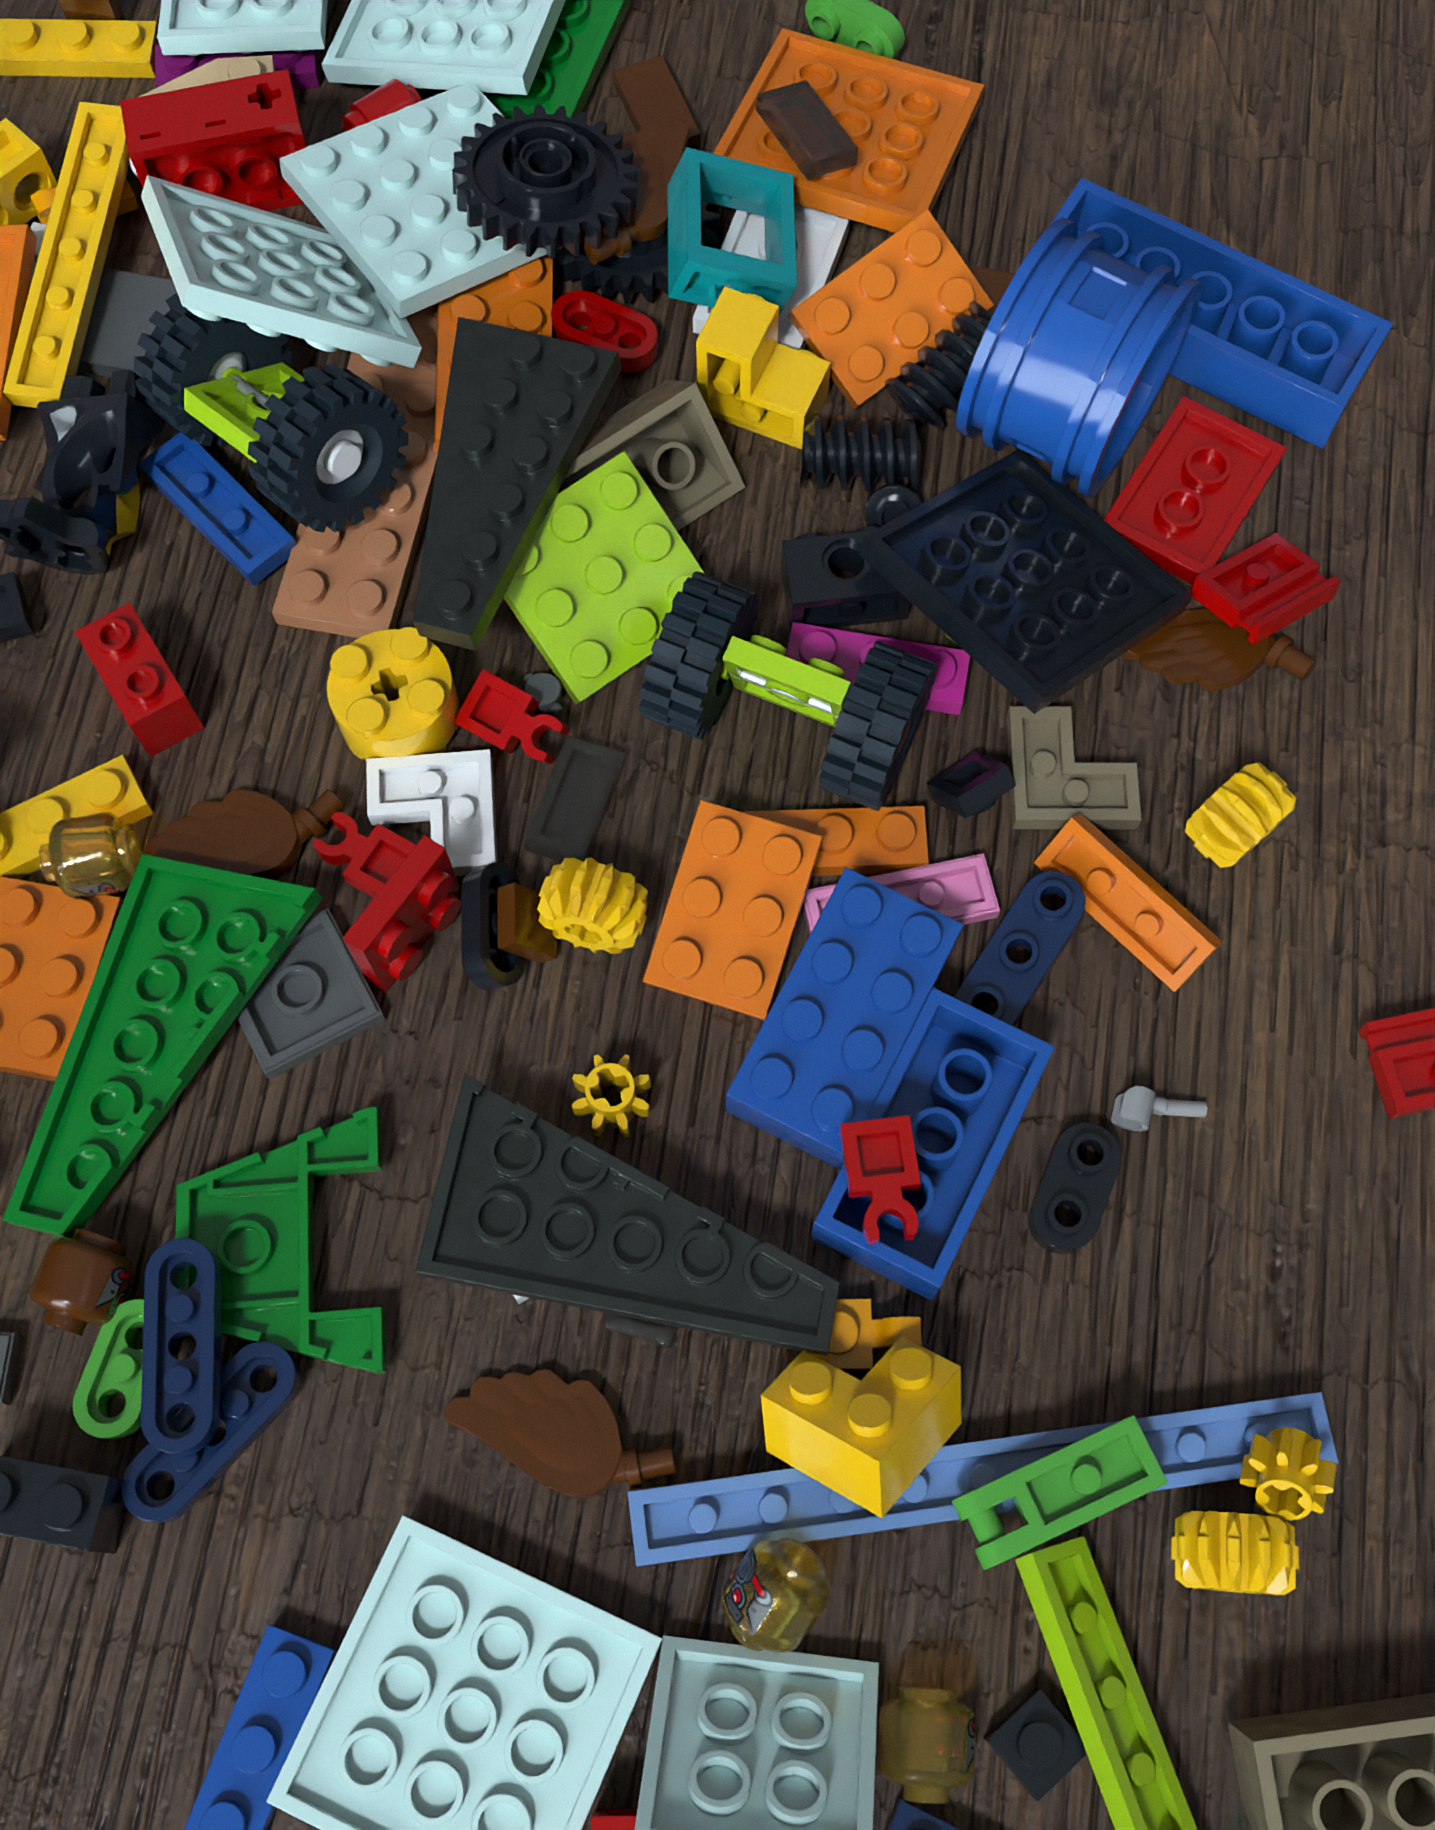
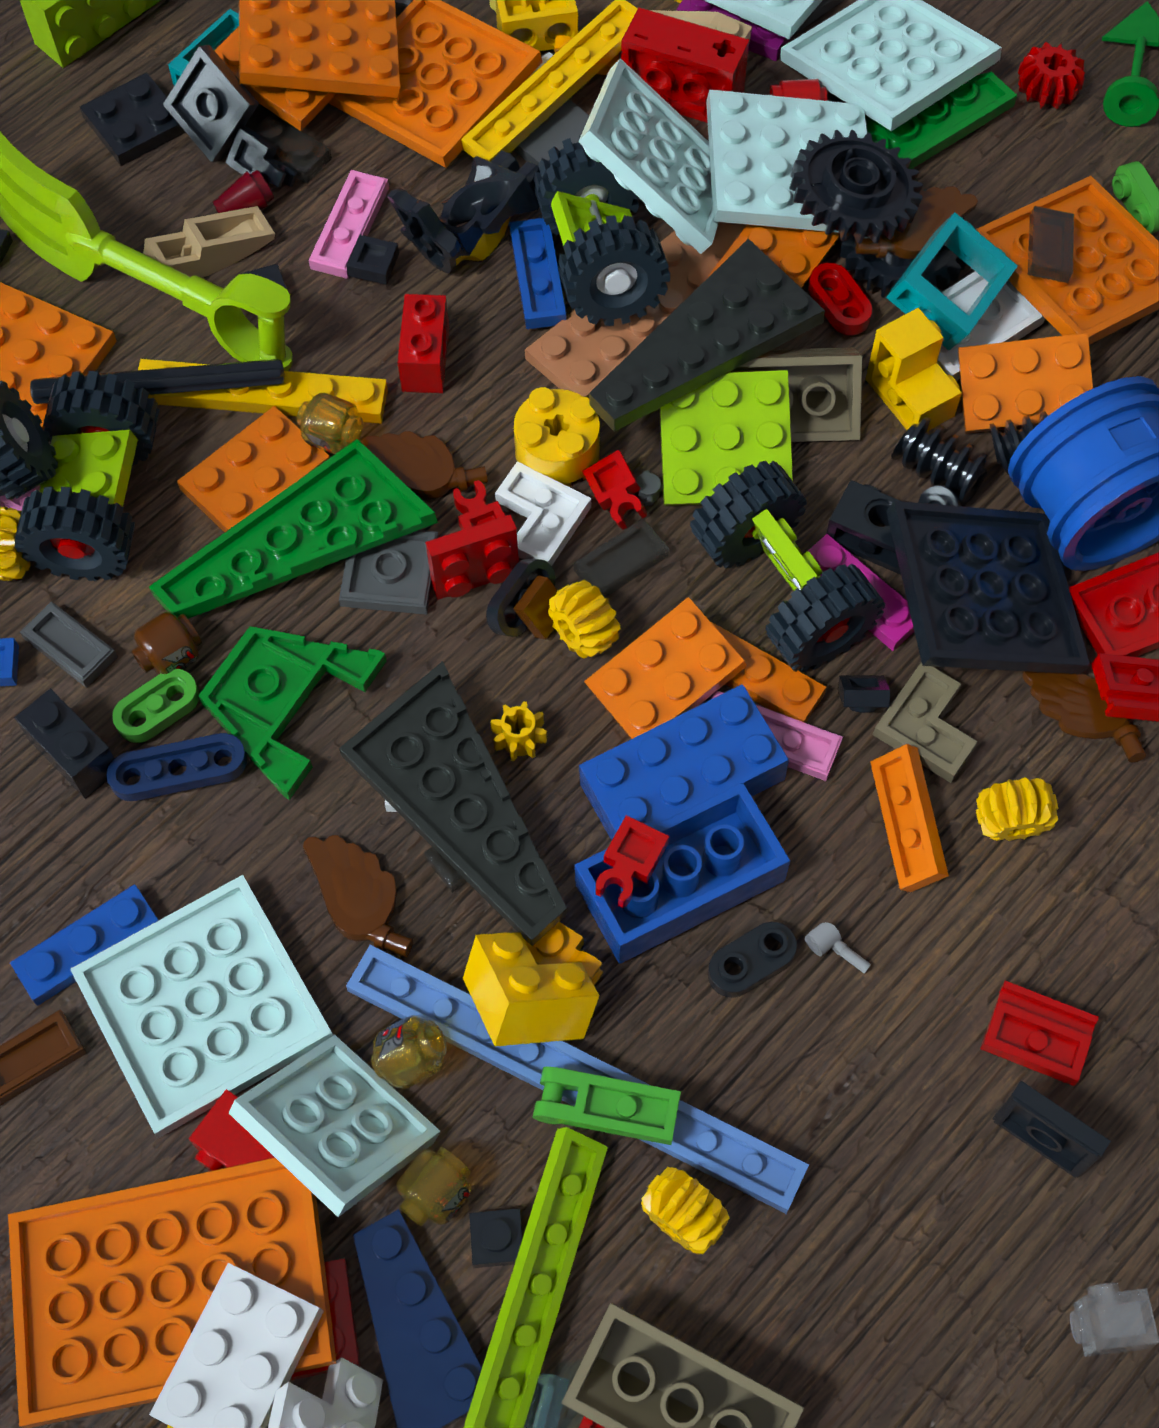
camera: 35 degrees right, 5 degrees down
(169, 1317) = (195, 690): dark blue plate -> none
(653, 95) = (977, 176): reddish brown tile -> none
(1037, 929) = (840, 807): dark blue plate -> none
(1288, 1473) = (747, 1184): yellow gear -> none

